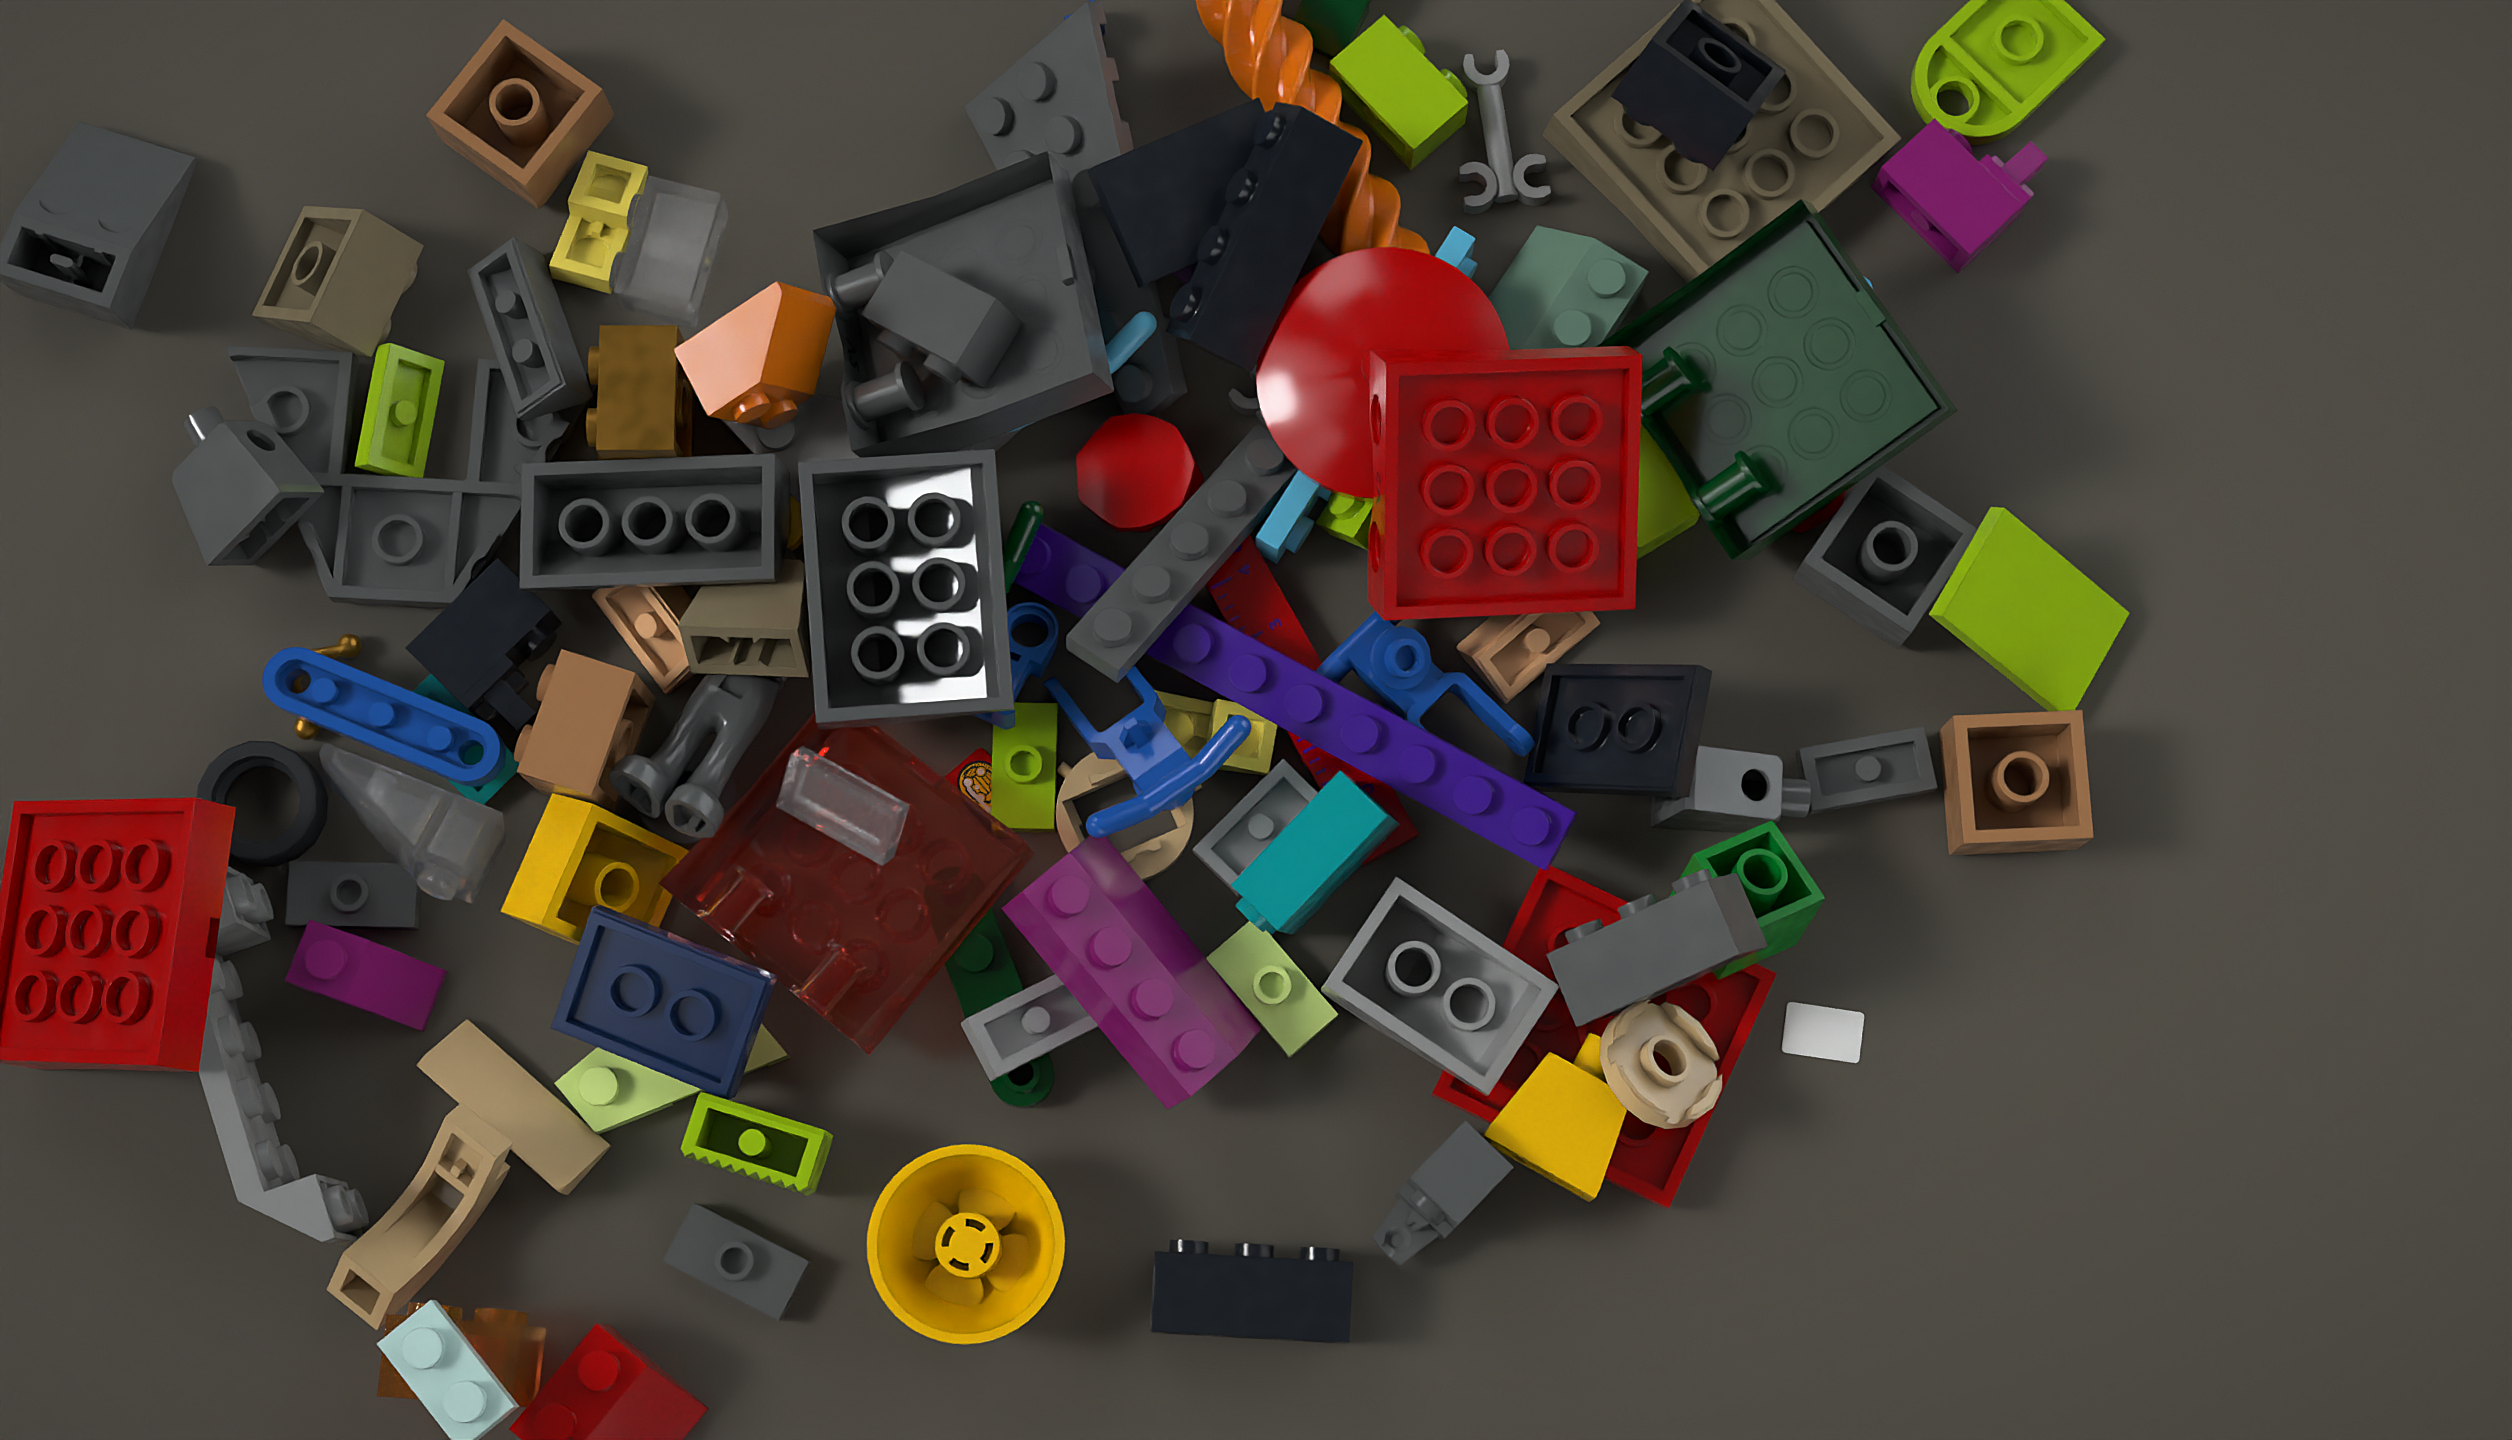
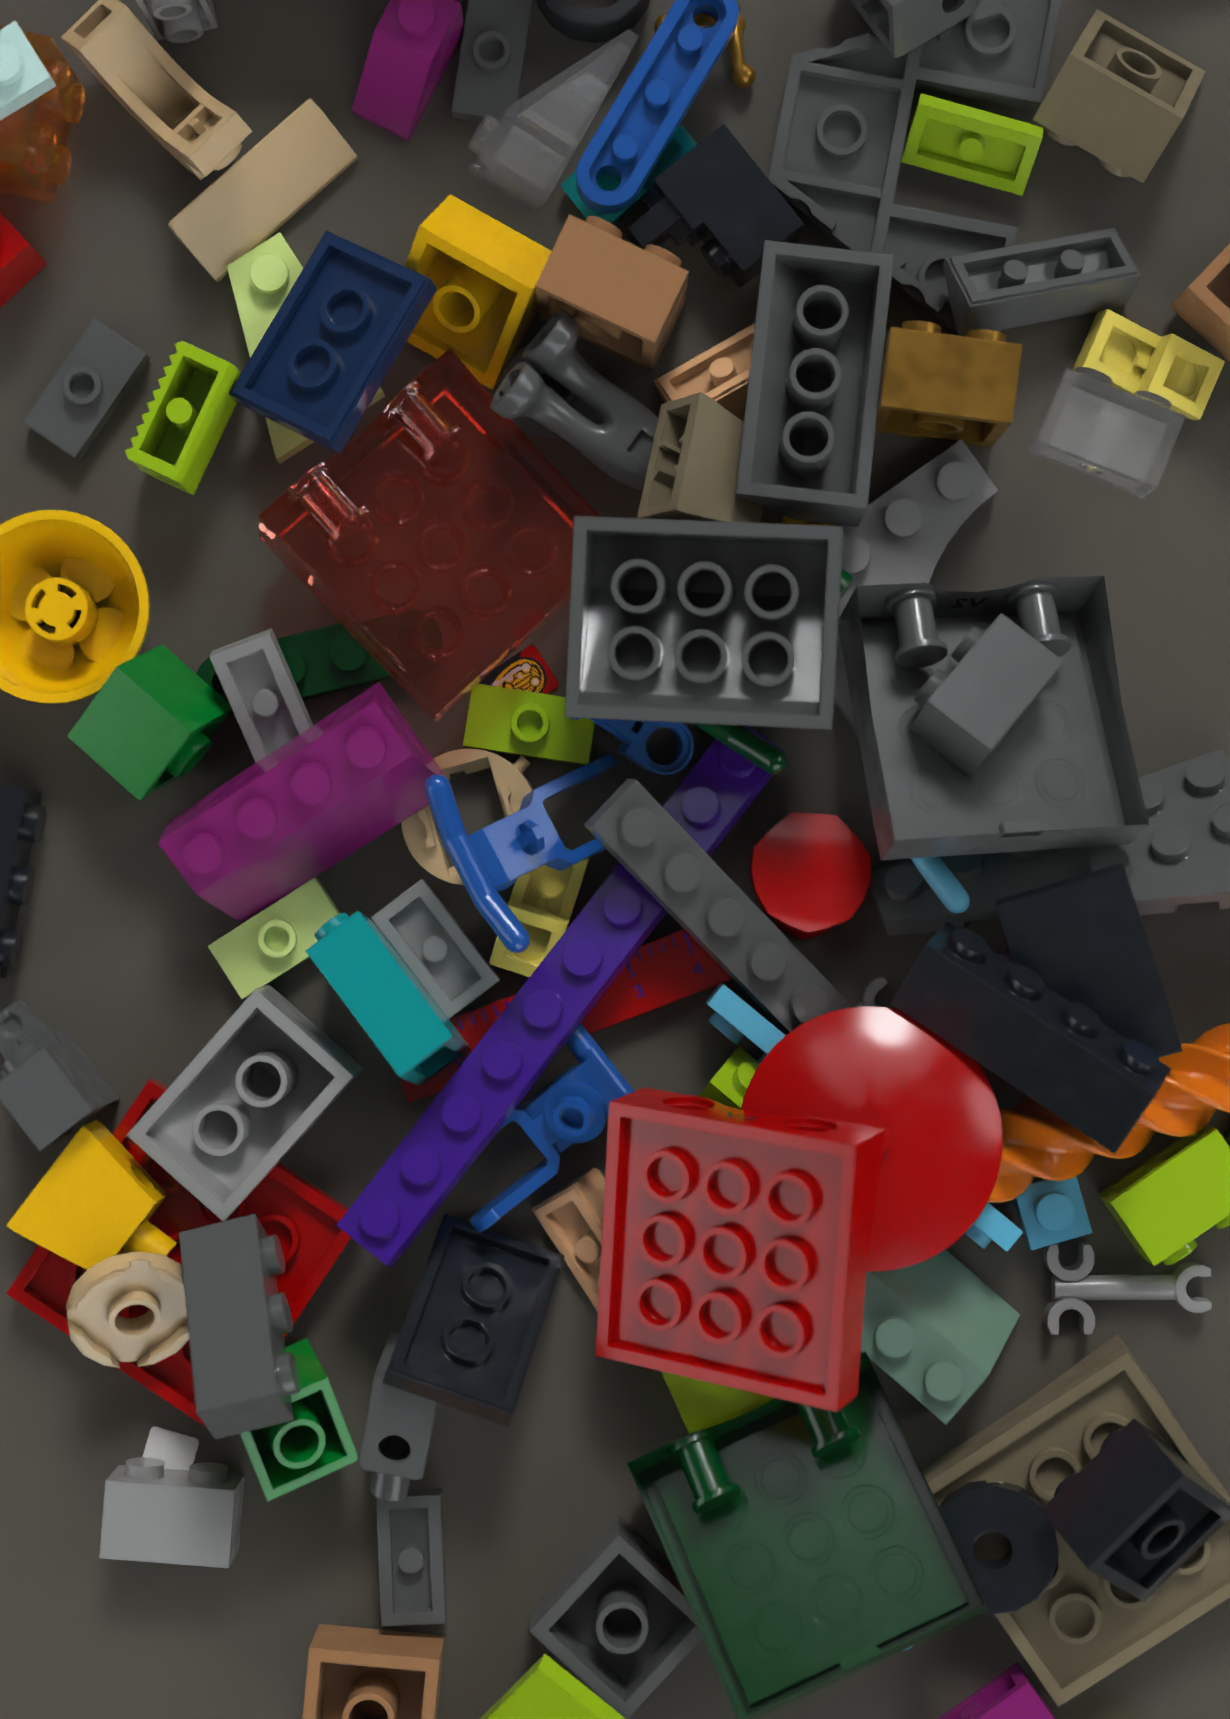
camera: 100 degrees right, 10 degrees up
(761, 356) = (967, 503): orange slope -> none
(842, 805) = (506, 538): clear tile -> none
(1071, 1132) = (150, 722): none -> green head
(1433, 207) = (1052, 1212): none -> medium azure plate
(1742, 180) = (1033, 1549): none -> black tile
(1861, 1010) = (172, 1514): none -> light grey brick

